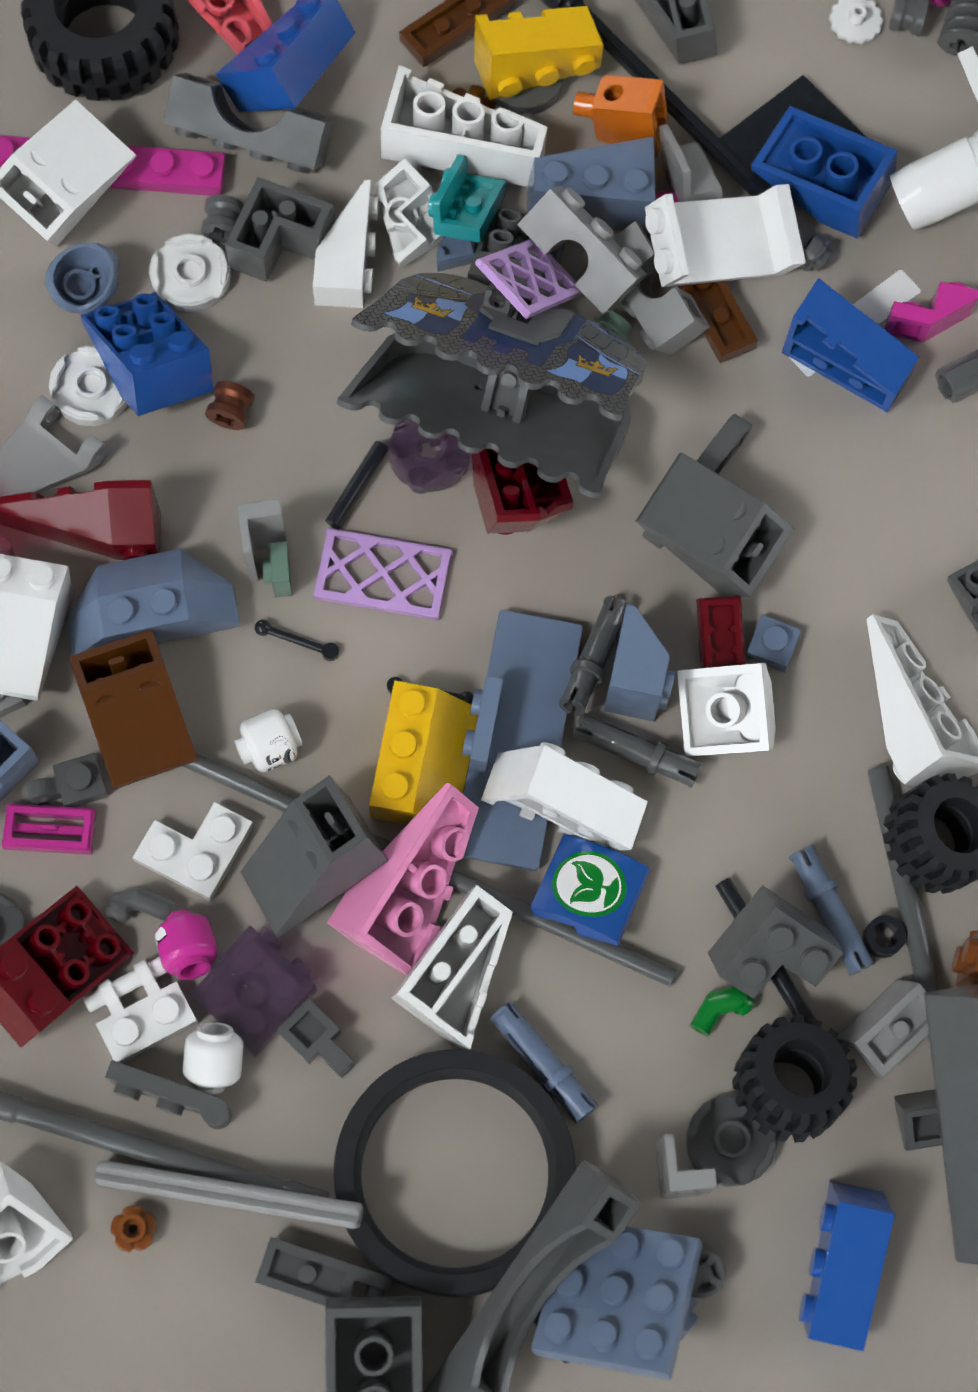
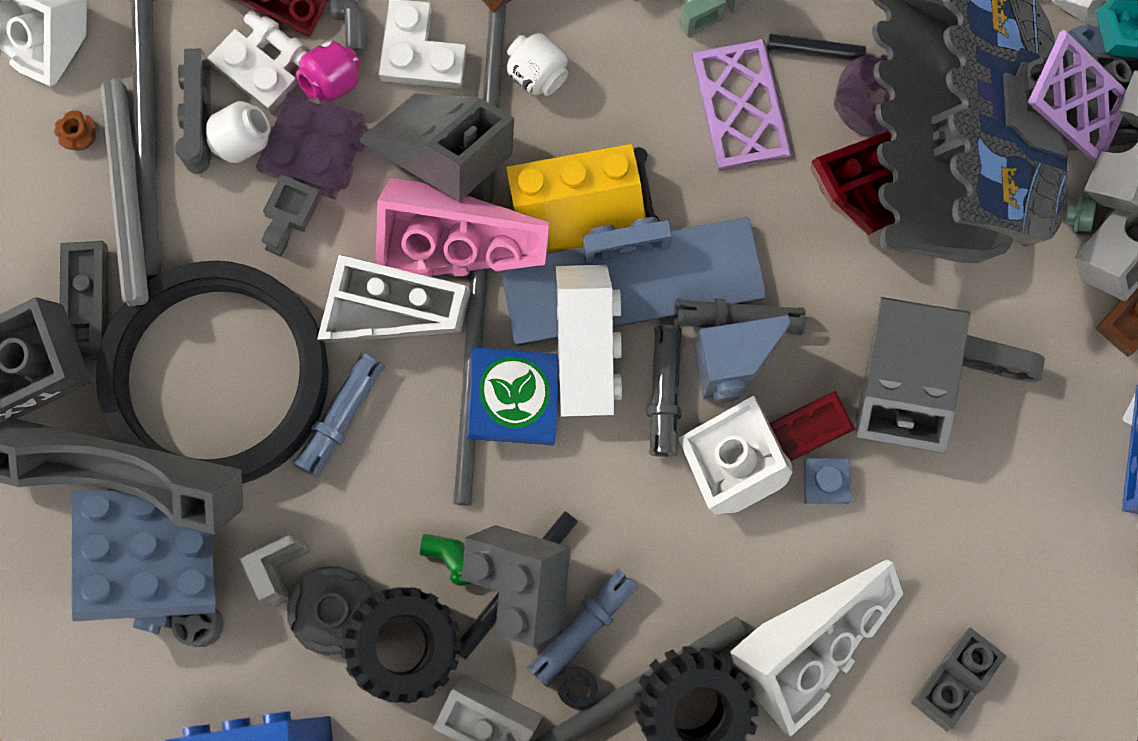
camera: 75 degrees right, 5 degrees up
(329, 650) = (646, 87): black hinge -> none

